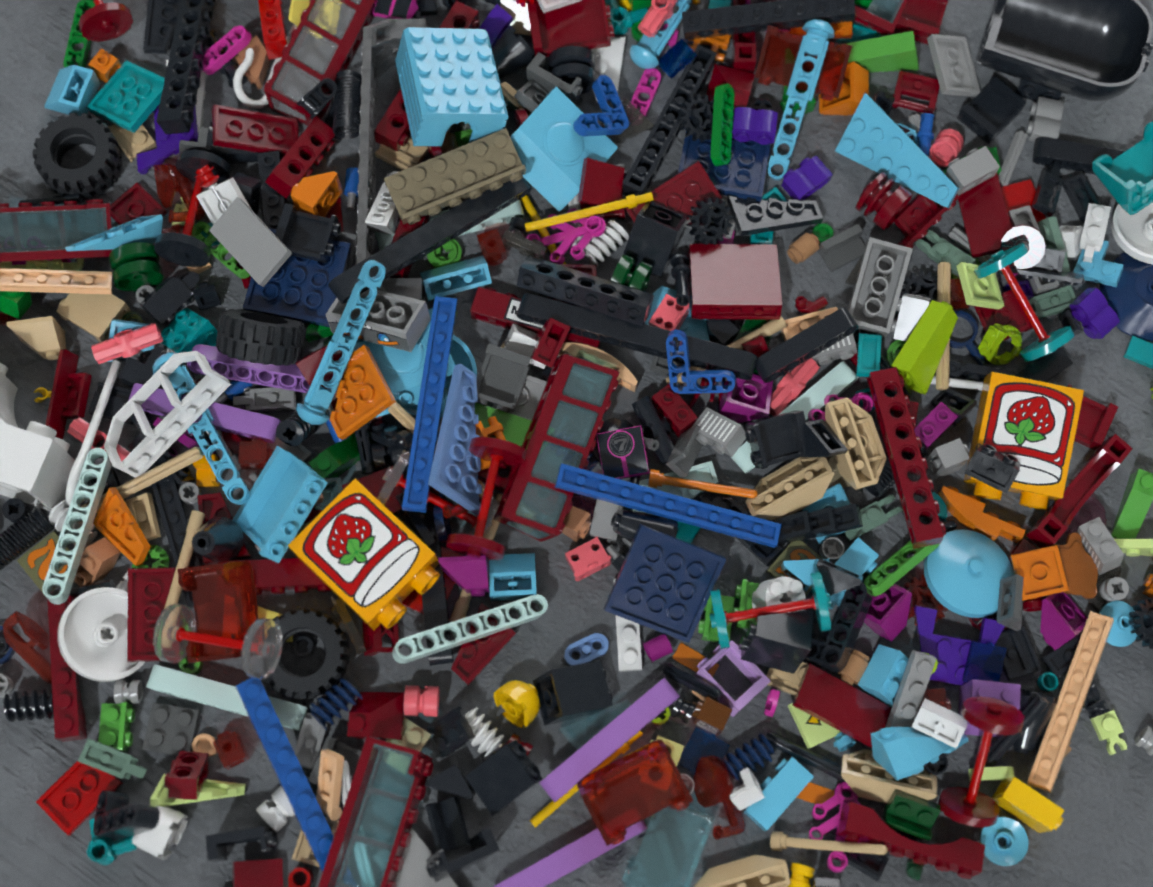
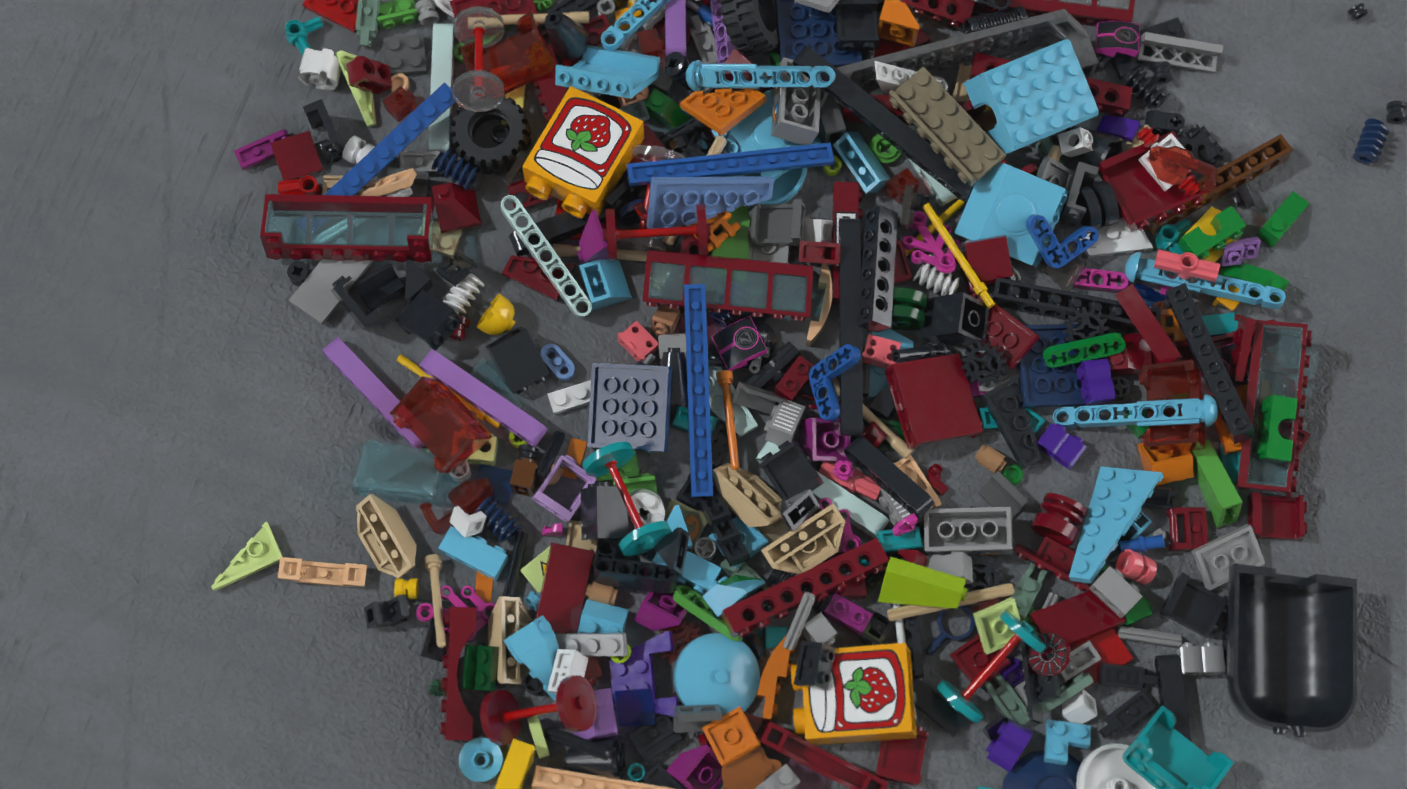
camera: 75 degrees right, 0 degrees up
(120, 820) = (323, 31): black beam -> none
(421, 700) = (476, 235): coral wheel -> none
(504, 54) = (1068, 140): none -> white brick
(658, 647) = (575, 421): magenta beam -> none
(715, 58) = (1147, 325): none -> dark red slope
(781, 391) = (843, 475): none -> dark pink plate
(860, 343) = (905, 525): none -> dark pink tile
(889, 531) = (730, 591): none -> medium azure slope
(894, 345) = (913, 556): none -> dark red slope
(940, 471) = (799, 621): none -> light grey axle
(993, 339) = (954, 650): lime piece -> none
(1094, 230) = (1094, 726): white hinge -> none

